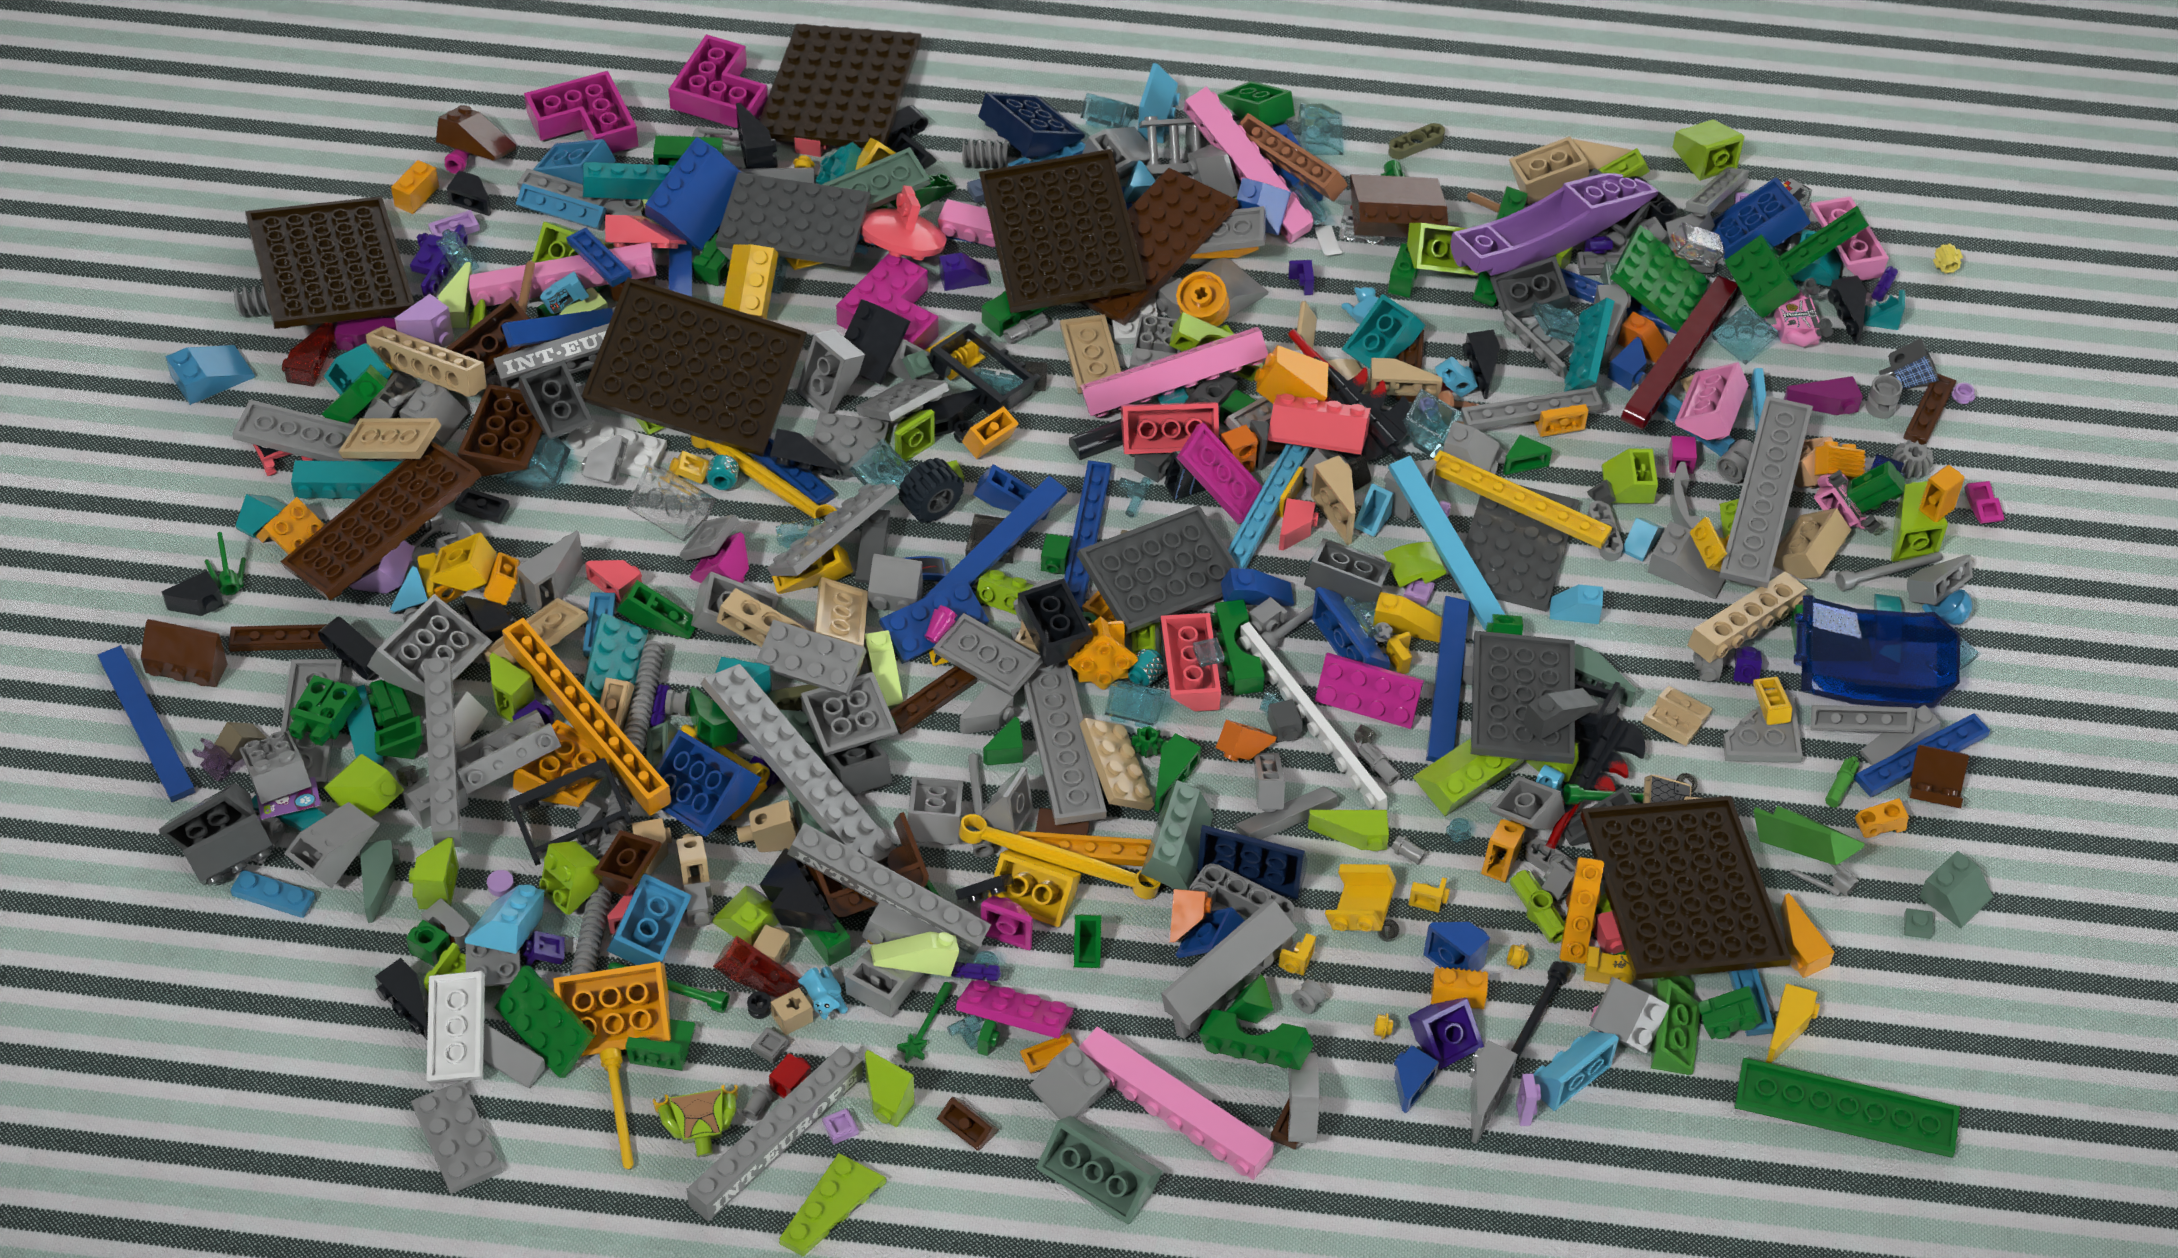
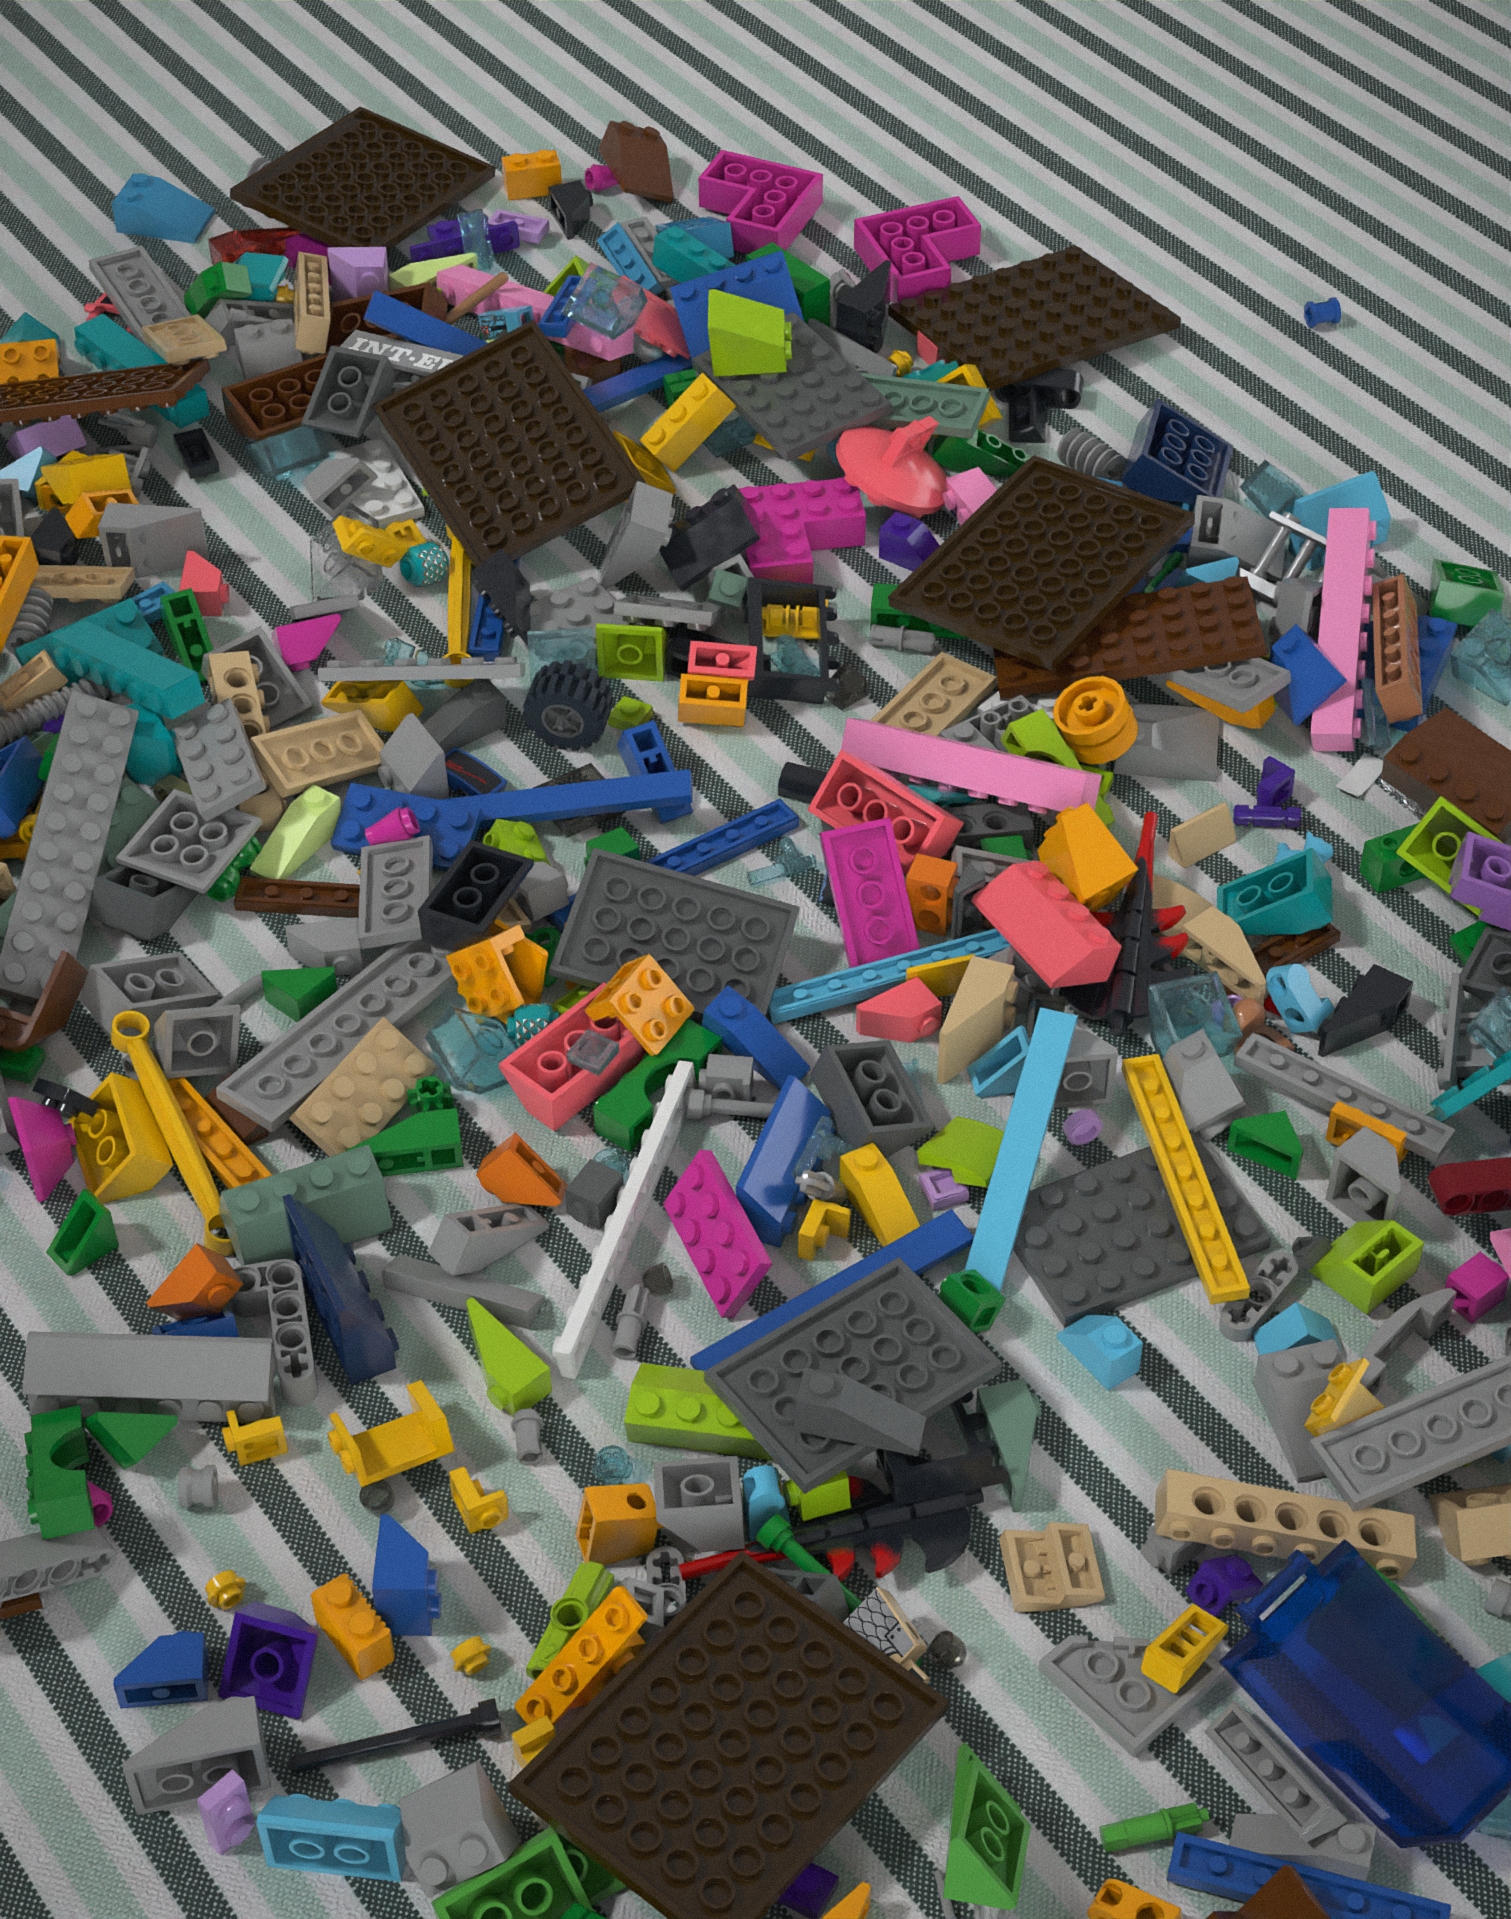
camera: 50 degrees right, 5 degrees down
(633, 238) = (605, 302): none -> clear light blue slope
(688, 648) = (128, 669): none -> teal brick
(692, 480) = (368, 542): none -> yellow bracket
(749, 206) = (746, 336): none -> lime slope
(978, 408) = (722, 660): none -> coral slope
(1193, 606) = (644, 1003): none -> light orange bracket
(1319, 293) = (1267, 816): none -> dark purple axle
(1594, 439) = (1365, 1178): none -> light grey slope

